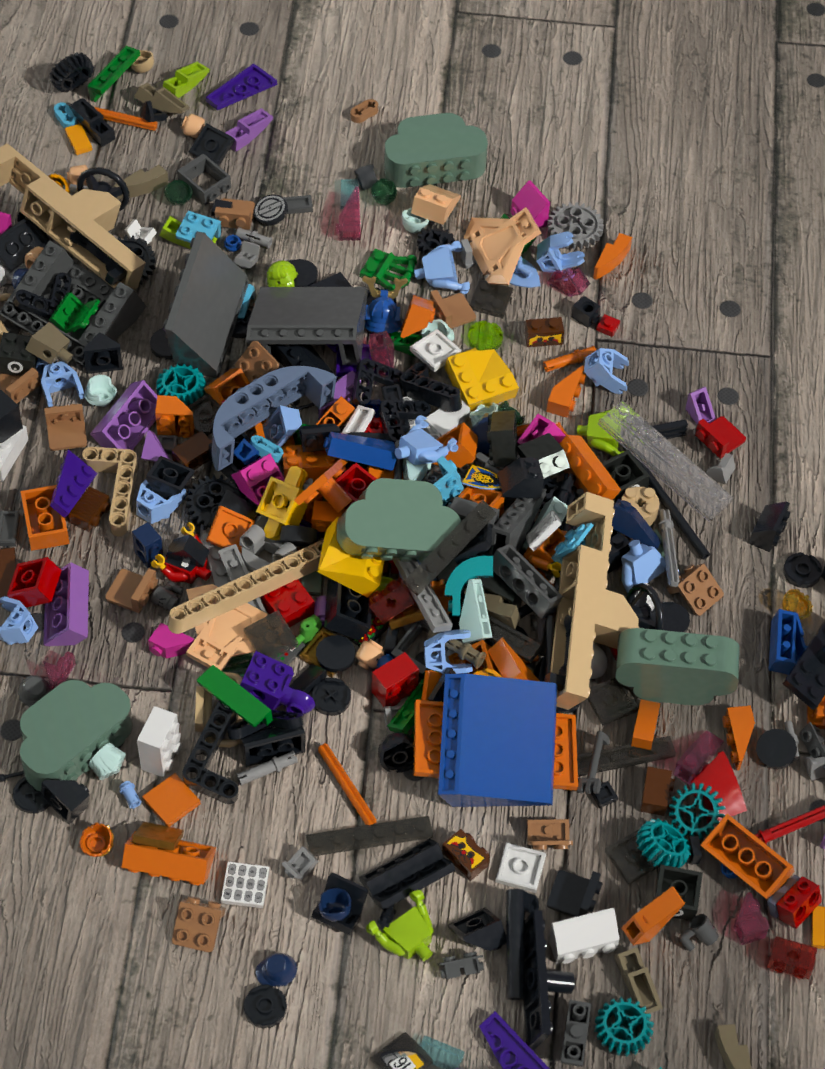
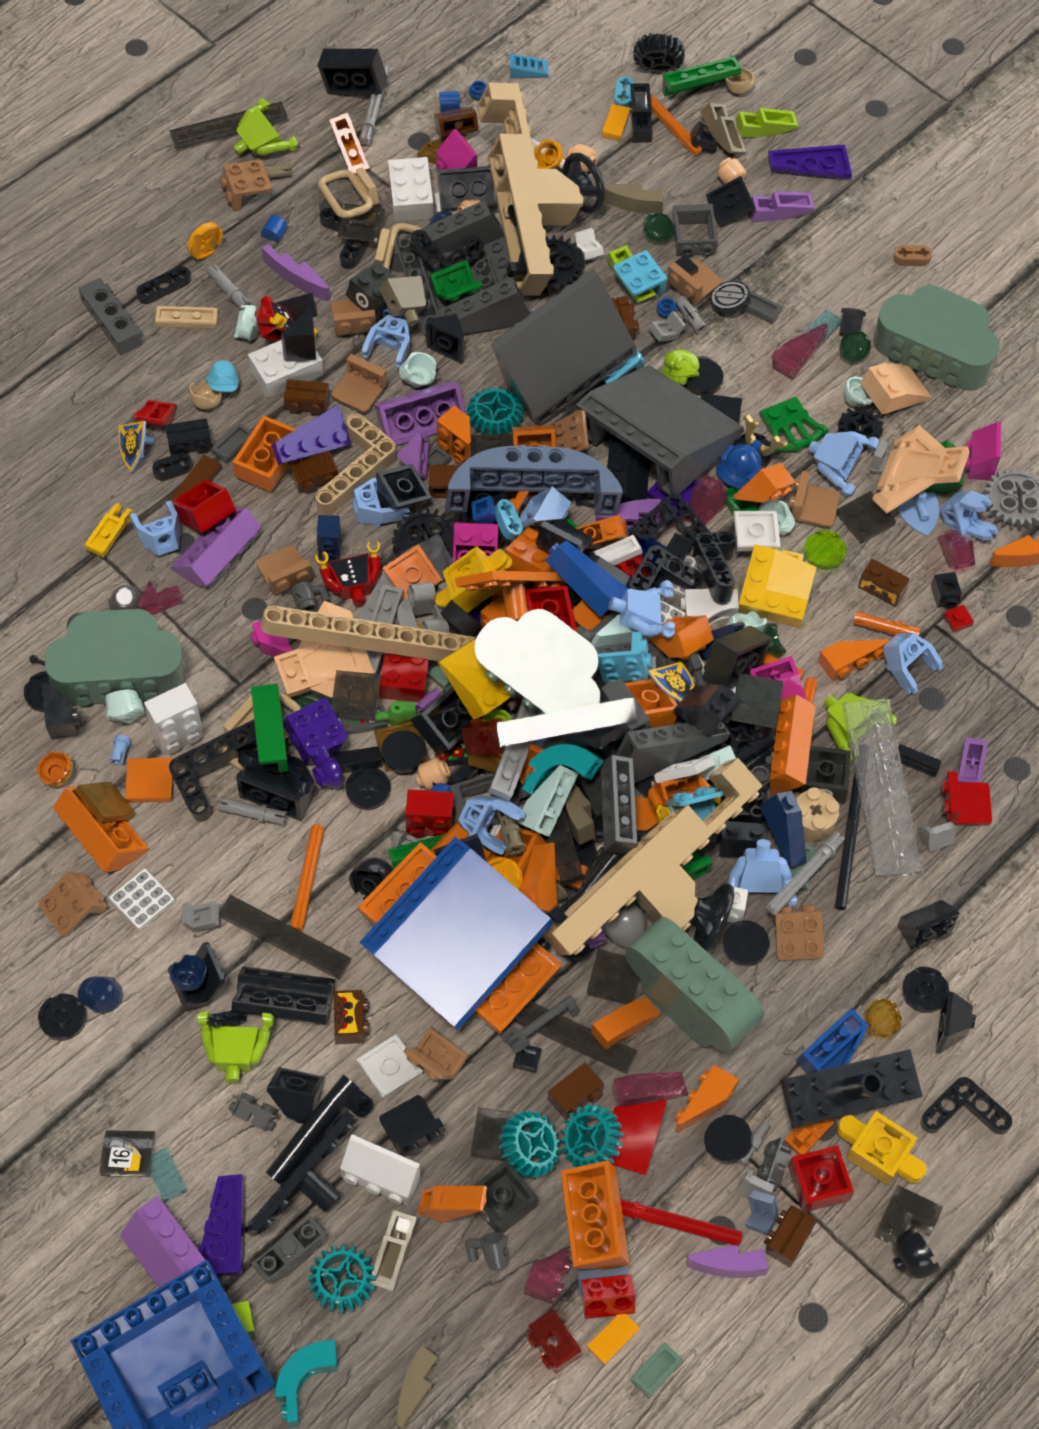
camera: 40 degrees right, 5 degrees up
(34, 460) = (306, 396): none -> reddish brown brick
(188, 550) = (356, 568): black slope -> none
(696, 853) = (555, 1176): black tile -> none

